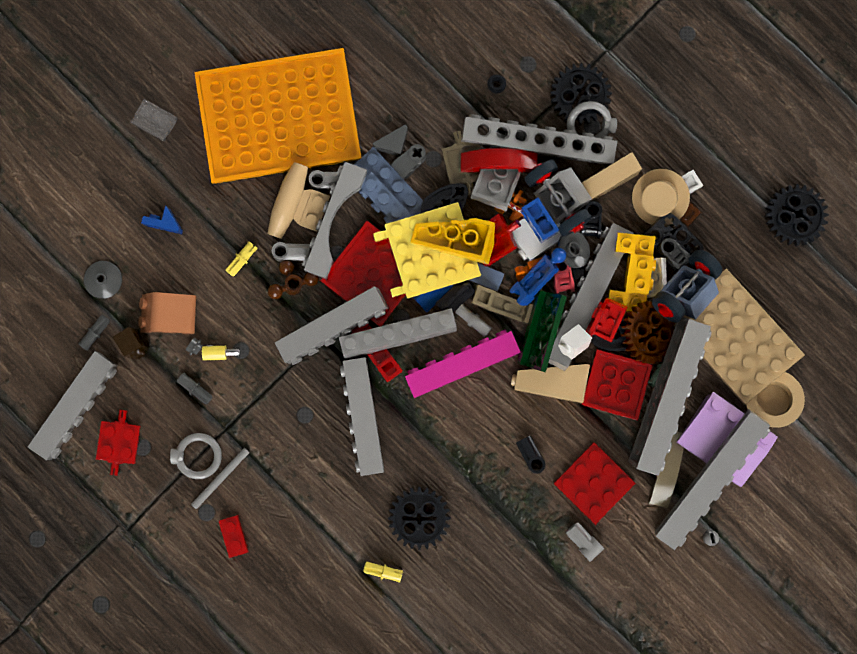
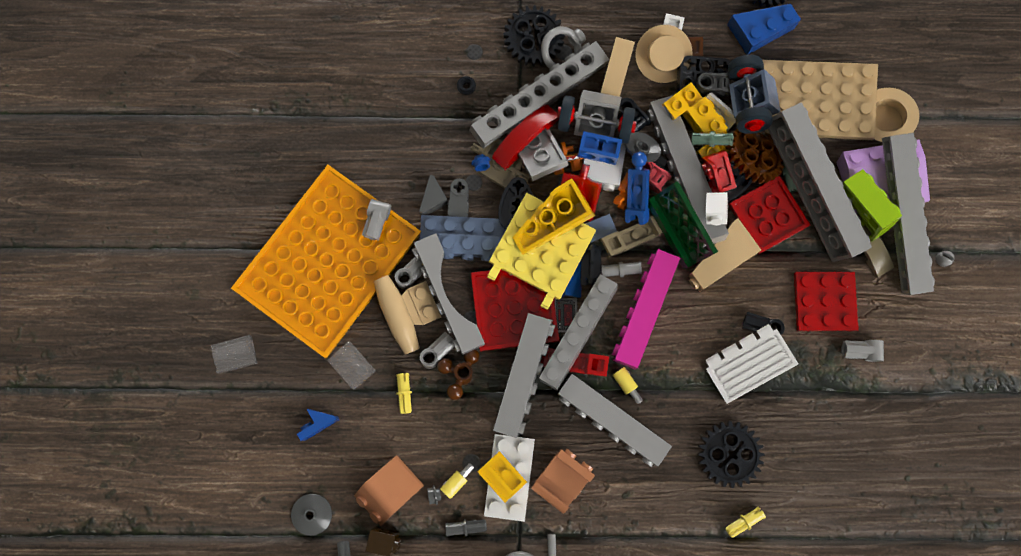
camera: 50 degrees left, 5 degrees down
(224, 205) = (351, 365): none -> clear plate
(250, 378) = (502, 477): none -> yellow plate
(256, 385) = (520, 454): none -> white plate
(288, 421) = (562, 480): none -> nougat piece
(341, 117) = (377, 214): none -> light grey piece
(398, 402) = (627, 384): none -> light yellow piece
(406, 310) = (565, 312): none -> sticker
(449, 150) = (481, 162): none -> blue plate
(495, 473) = (751, 365): none -> white hinge
(627, 292) = (712, 139): none -> sand green pin
(690, 445) = (871, 204): none -> lime wedge
(754, 247) = (762, 26): none -> blue wedge

